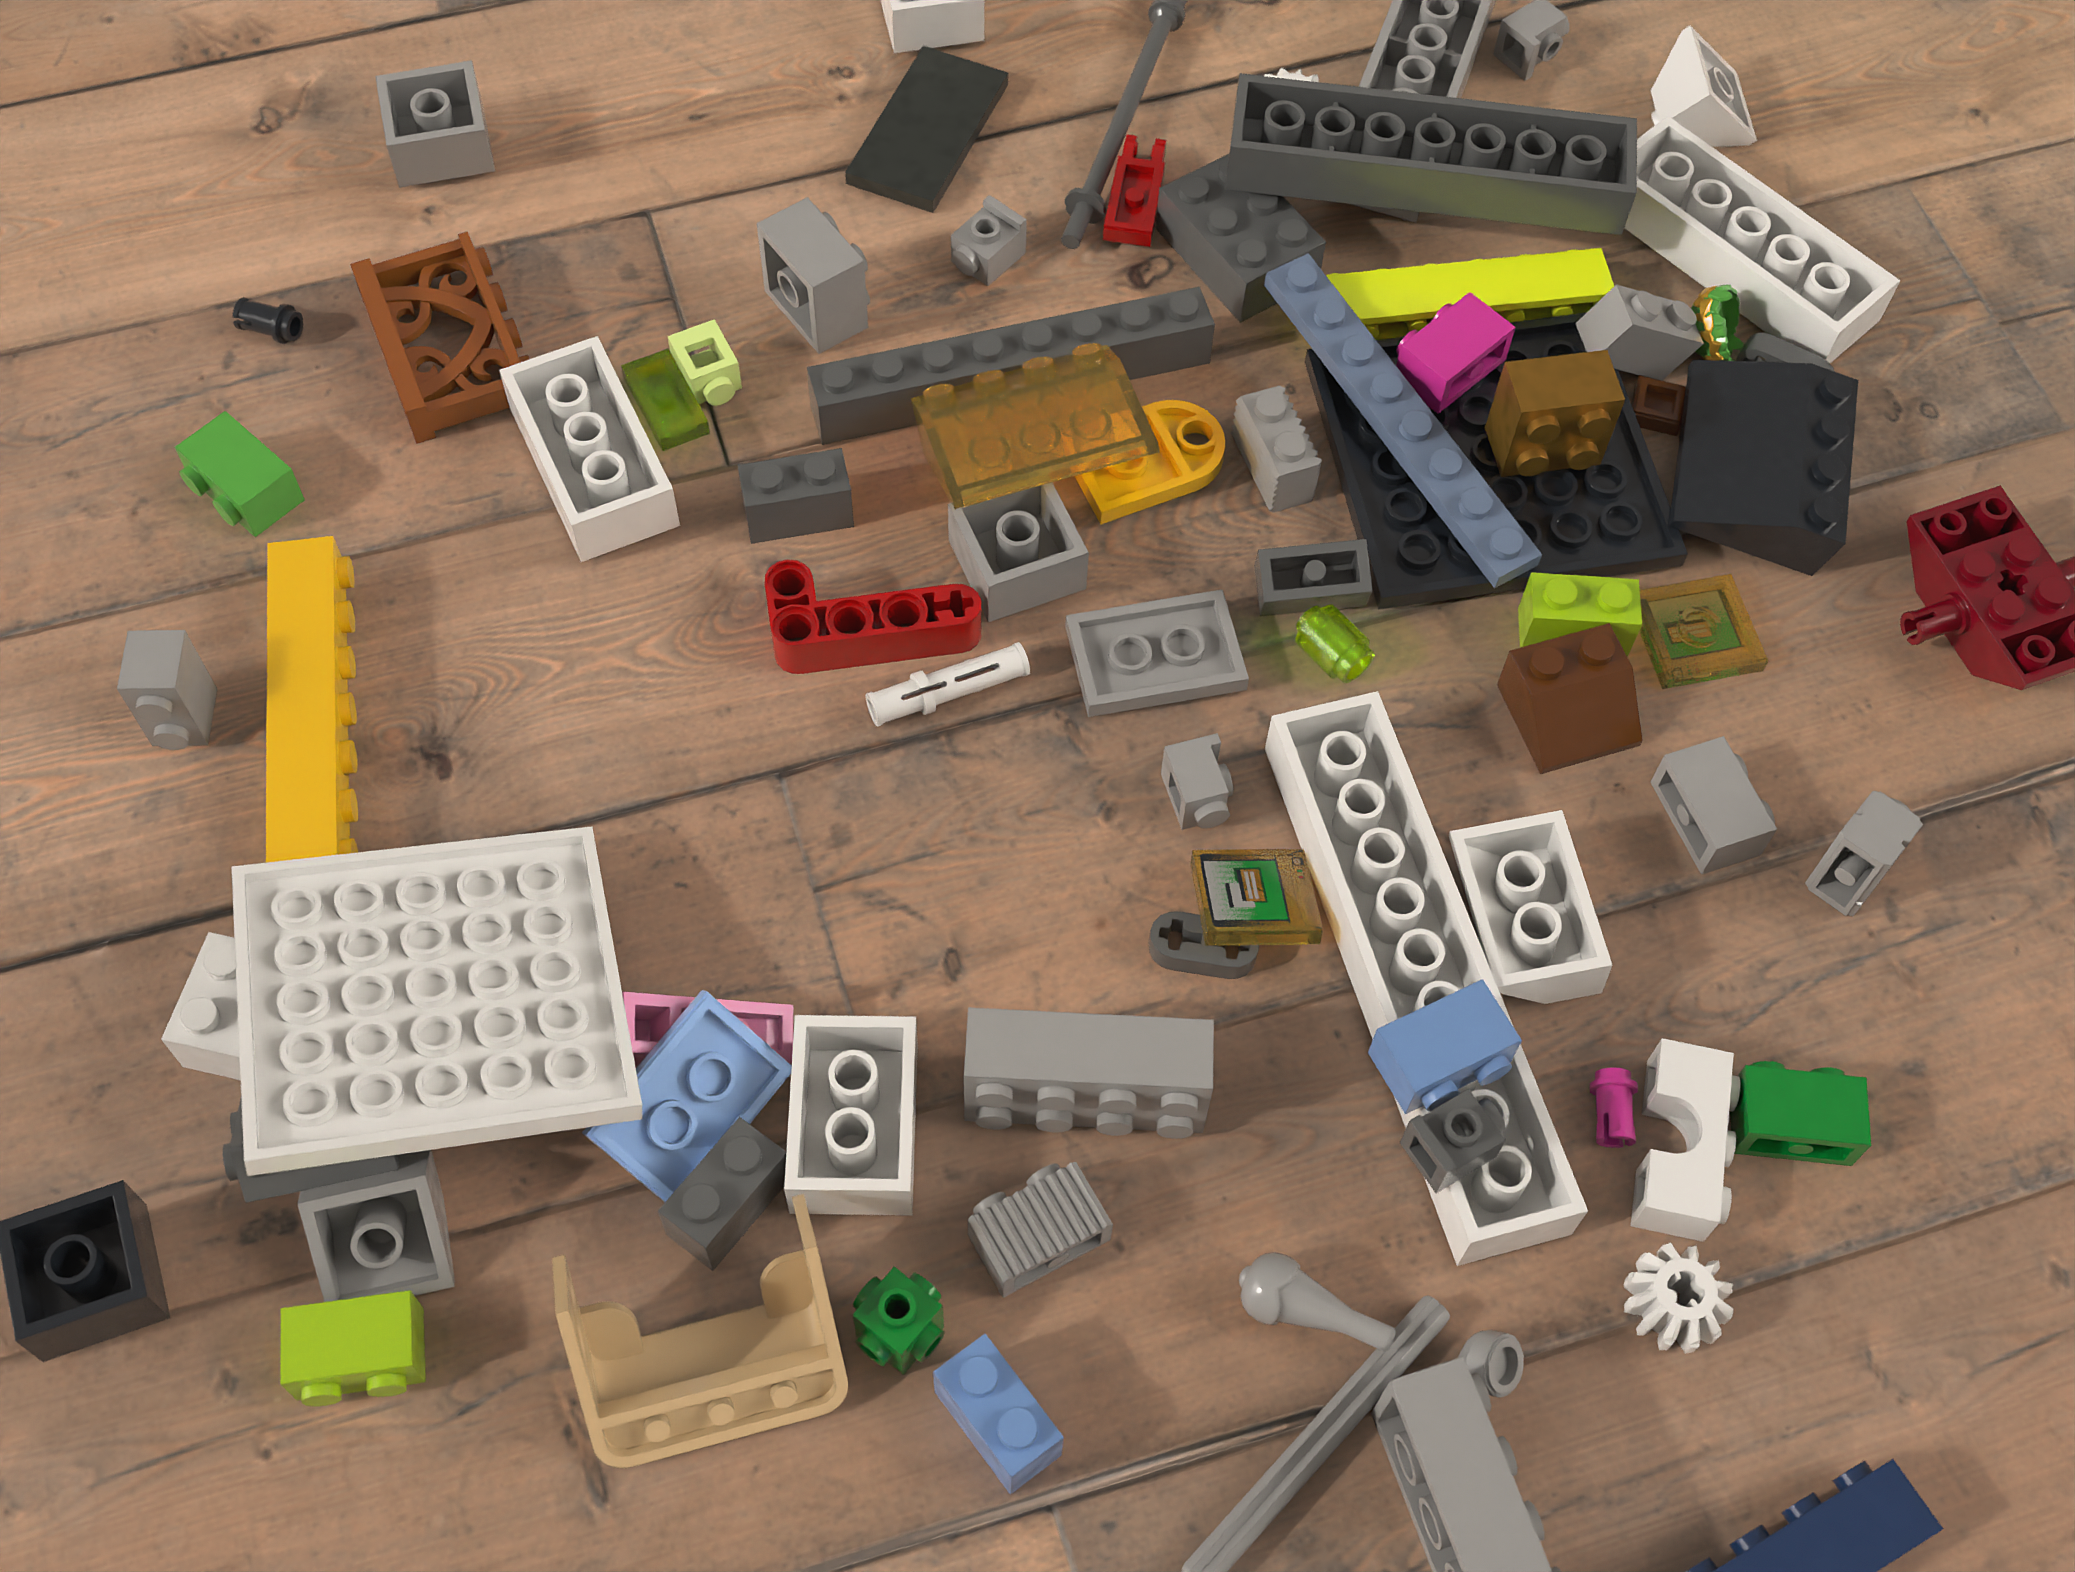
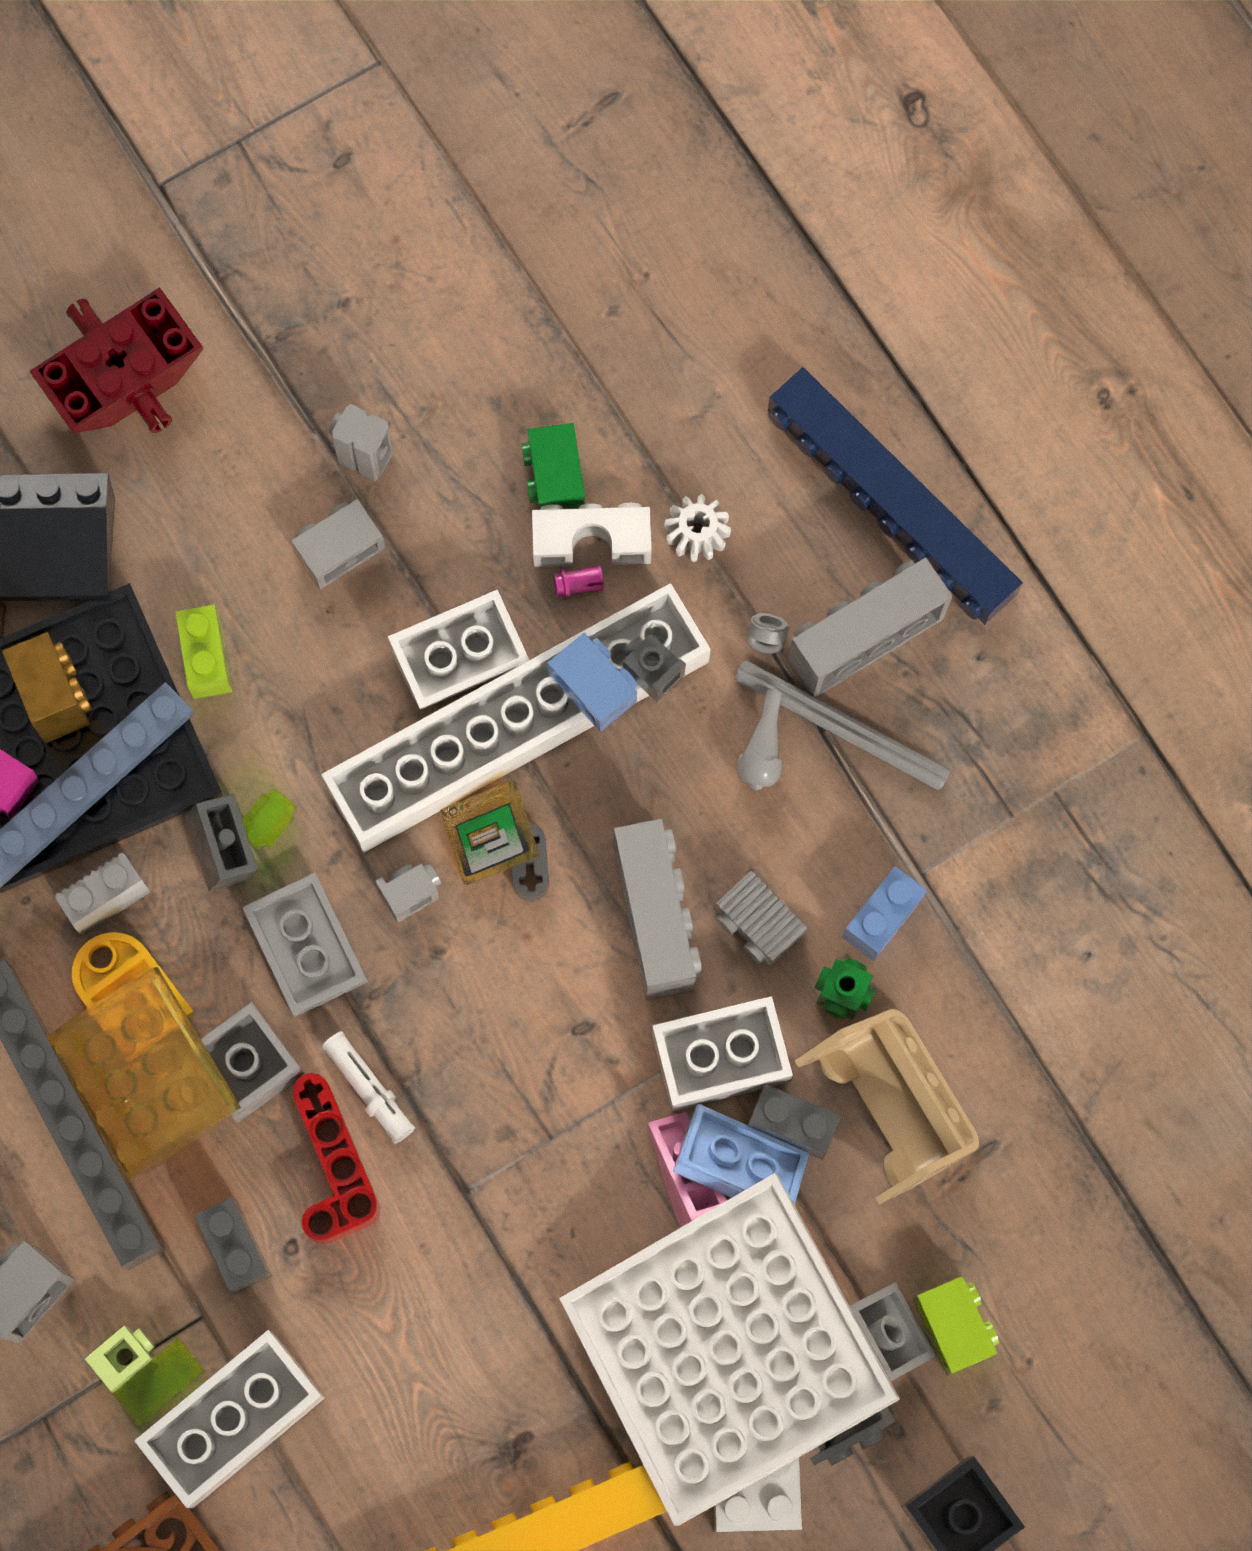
camera: 105 degrees left, 15 degrees up
(1572, 698) = (274, 647): reddish brown slope -> none
(1699, 632) = (187, 570): clear yellow tile -> none

